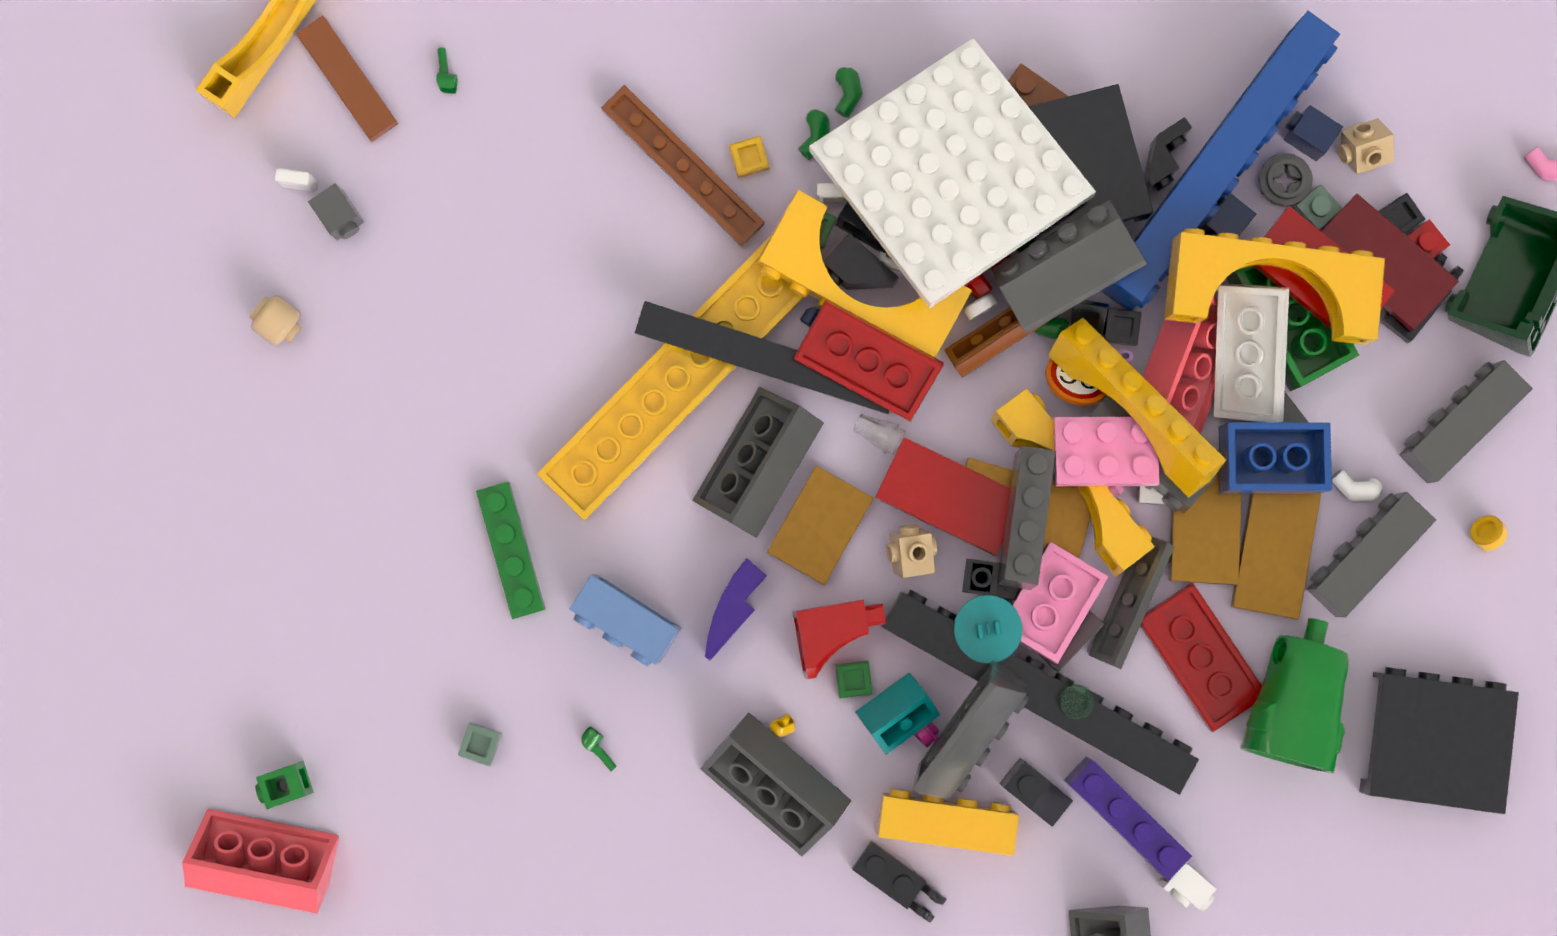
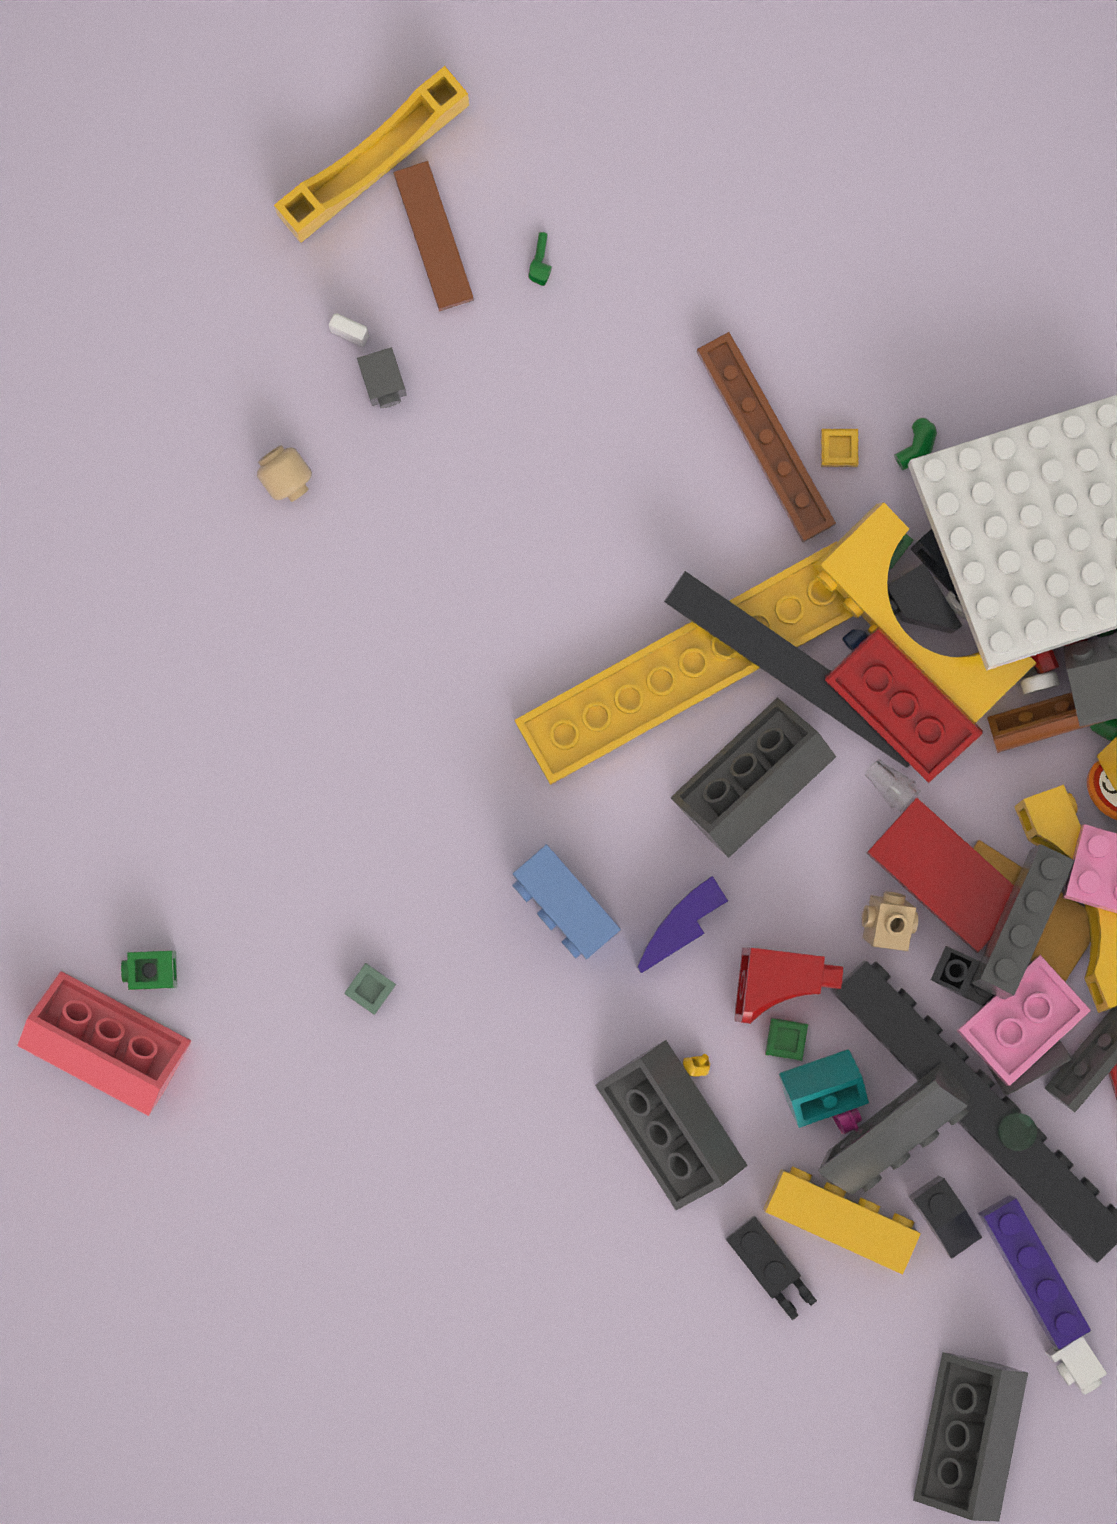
camera: 10 degrees right, 0 degrees up
(510, 550) = (461, 792): green plate -> none
(591, 740) = (489, 1020): green hand -> none
(820, 525) = (799, 864): pearl gold tile -> none
(829, 193) = (913, 513): white tile -> none
(852, 89) = (971, 408): green arm -> none
(988, 629) = (946, 1027): teal piece -> none

